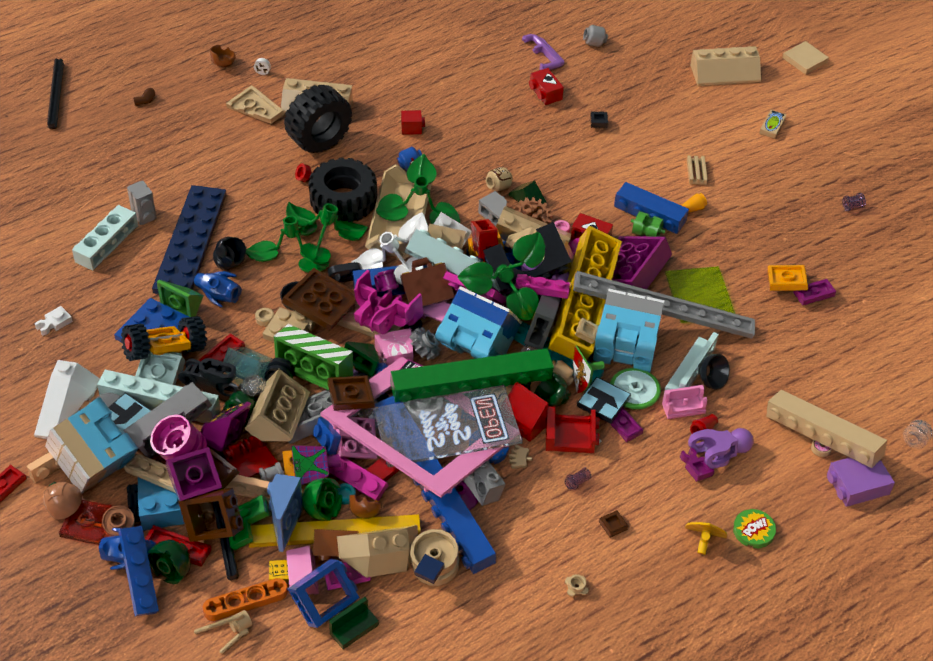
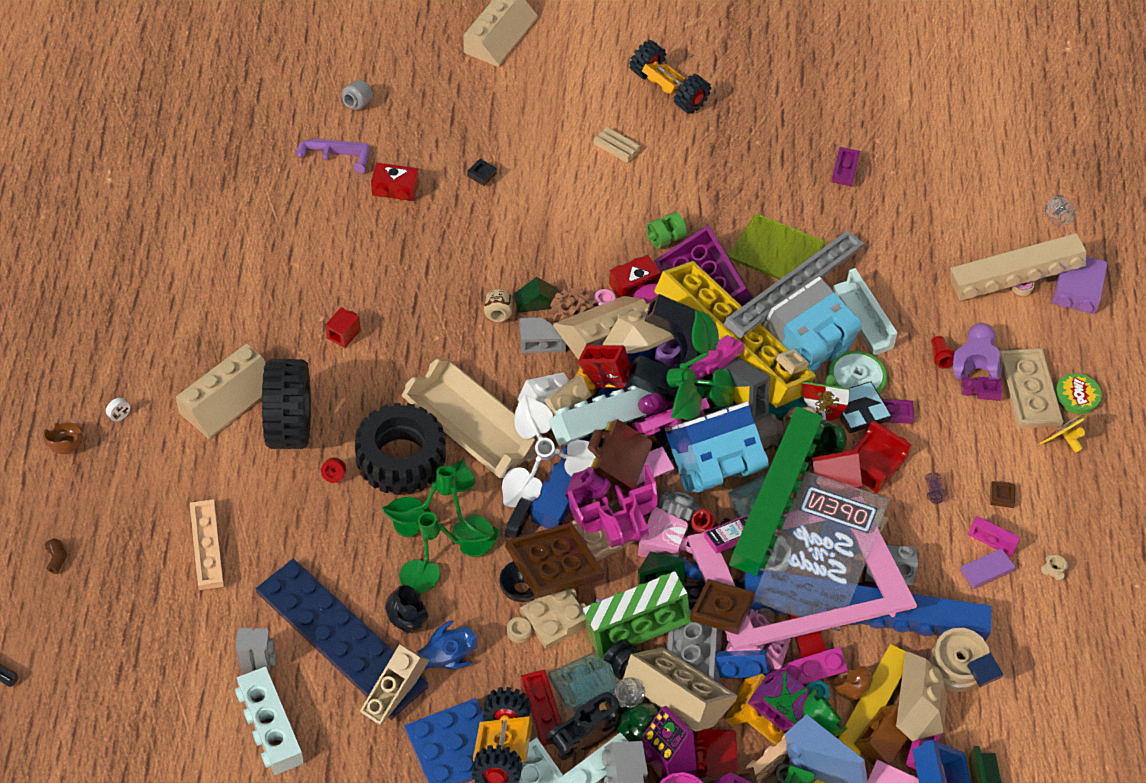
camera: 55 degrees left, 5 degrees up
(177, 270) = (394, 683): none -> tan slope
(179, 298) = (442, 693): bright green slope -> none
(203, 149) = (206, 545): none -> light nougat plate
(255, 104) = (178, 452): tan wing -> none
(269, 473) = (750, 744): light grey bush -> none
(407, 156) = (400, 362): blue head -> none
(421, 173) = (505, 386): green plant -> none
(421, 357) = (703, 520): none -> red cone
(537, 544) = (987, 568): none -> medium lavender tile
(569, 540) = (993, 535): none -> dark pink plate
(634, 199) = (635, 212): blue brick -> none
(684, 402) = (905, 349): bright pink hinge -> none
(695, 203) = (663, 175): light orange cone -> none
(718, 373) = (888, 301): black piece -> none
(729, 495) = (1030, 388): none -> tan tile
(772, 124) = (606, 48): tile -> none
(779, 161) = (648, 65): none -> black plate
(787, 277) = (815, 173): light orange tile -> none
(854, 201) = (761, 59): bush -> none

